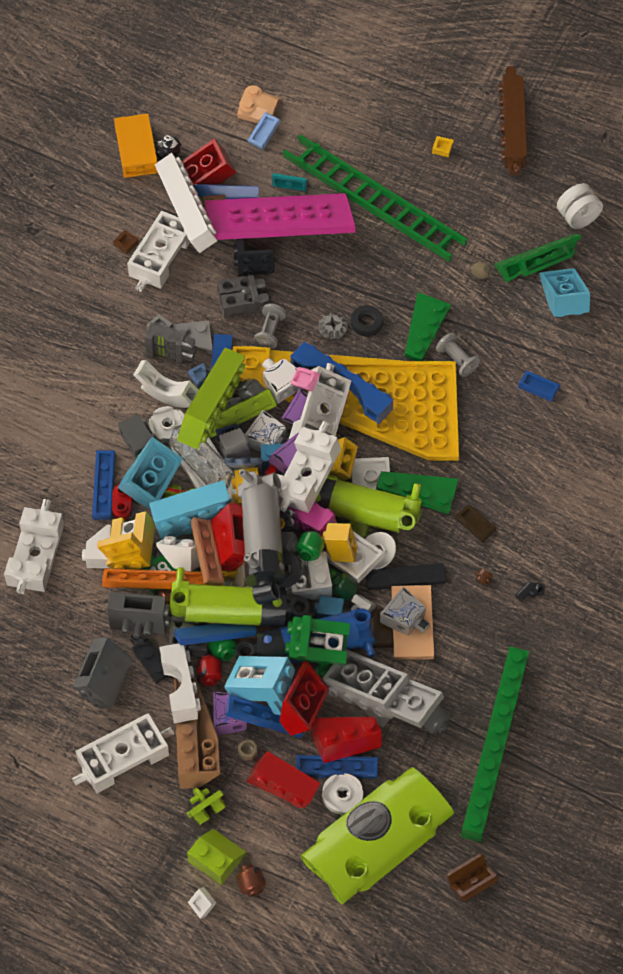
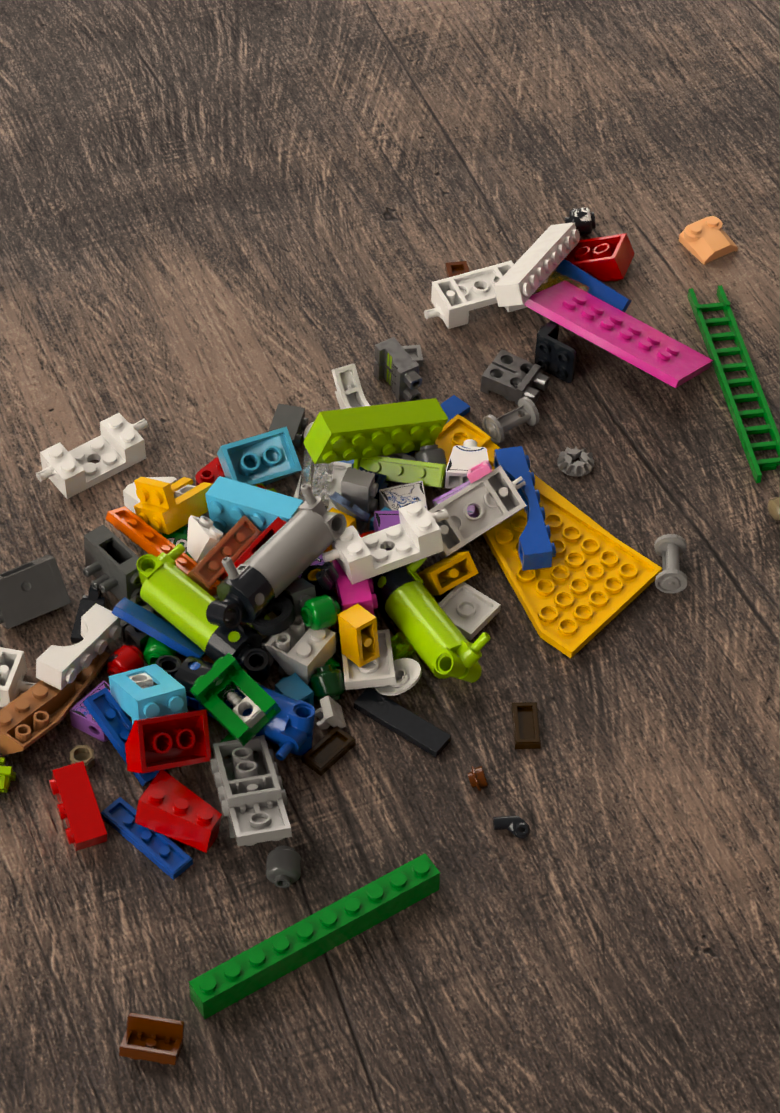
camera: 40 degrees right, 10 degrees down
(103, 484) = (194, 462): blue tile -> none
(136, 145) = (552, 200): light orange panel -> none
(200, 332) = (437, 383): light grey wing -> none
(264, 131) = (689, 262): light blue tile -> none
(289, 182) = (668, 318): teal slope -> none
(340, 783) = (122, 878): white plate -> none
(370, 330) = (614, 467): black tyre -> none
(377, 834) = (108, 925): lime panel -> none
(405, 613) = (357, 748): light grey torso -> none
(417, 644) = (362, 767): light nougat tile -> none
(425, 324) = (676, 516): green wing -> none
(435, 491) = (502, 657): green wing -> none
(539, 386) = (729, 650): blue tile -> none

